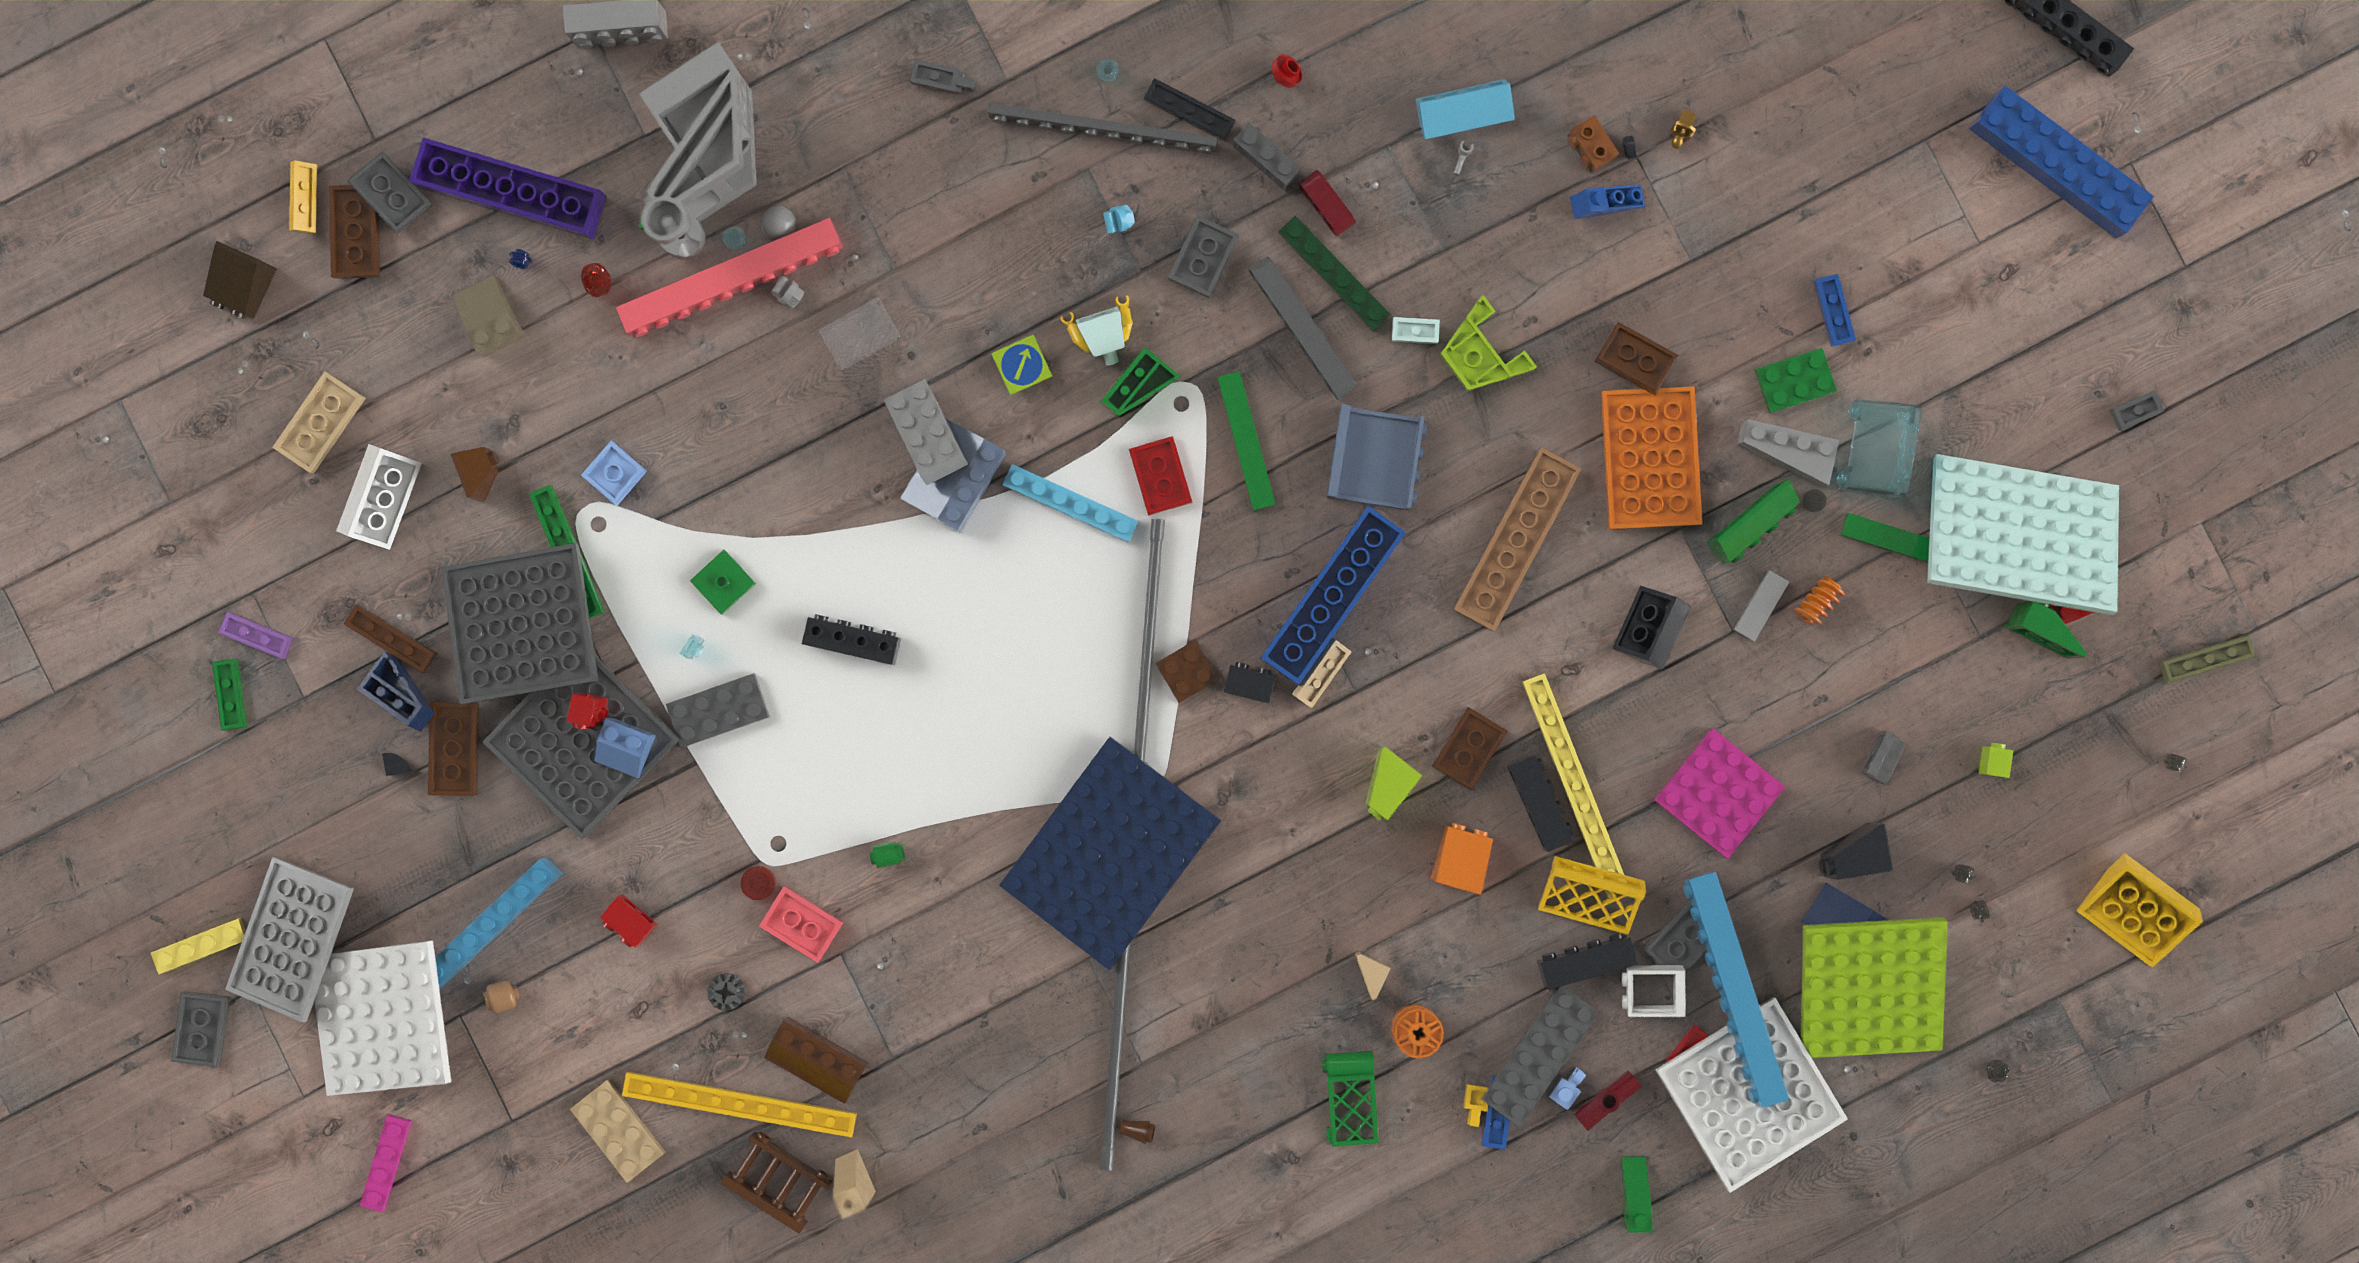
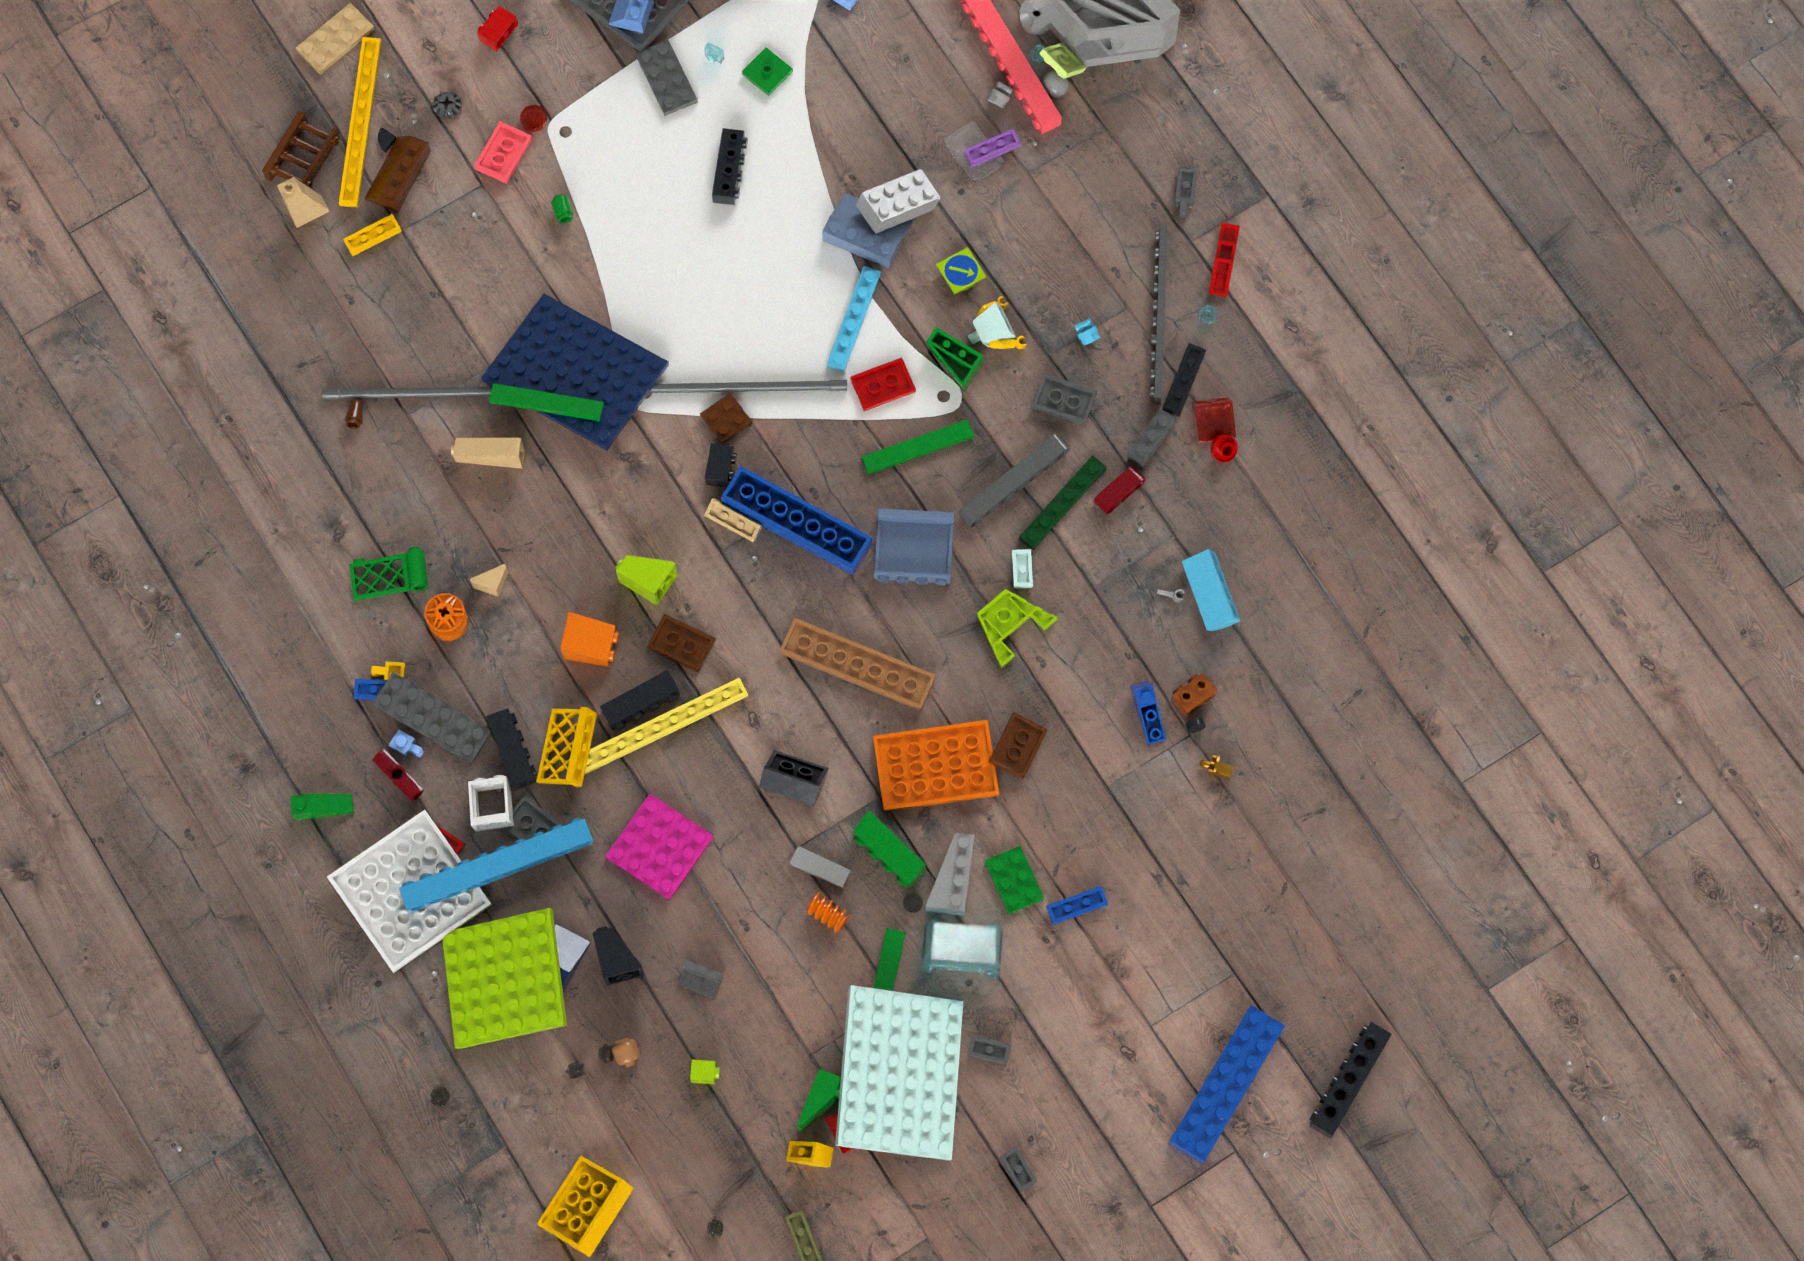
camera: 85 degrees right, 15 degrees down
(750, 208) = (1062, 60): none -> yellowish green plate
(766, 1073) = (385, 139): none -> black tile
(860, 309) = (992, 148): none -> medium lavender tile
(898, 1096) = (372, 235): none -> yellow plate
(1038, 41) = (1224, 259): none -> red slope
(1155, 891) = (546, 402): none -> green tile
(1206, 967) = (489, 451): none -> tan slope
(1244, 78) = (1214, 418): none -> clear red bracket
(1965, 850) = (626, 1052): none -> medium nougat head
(1996, 429) = (989, 1050): none -> dark grey plate
(2101, 646) = (809, 1153): none -> yellow slope

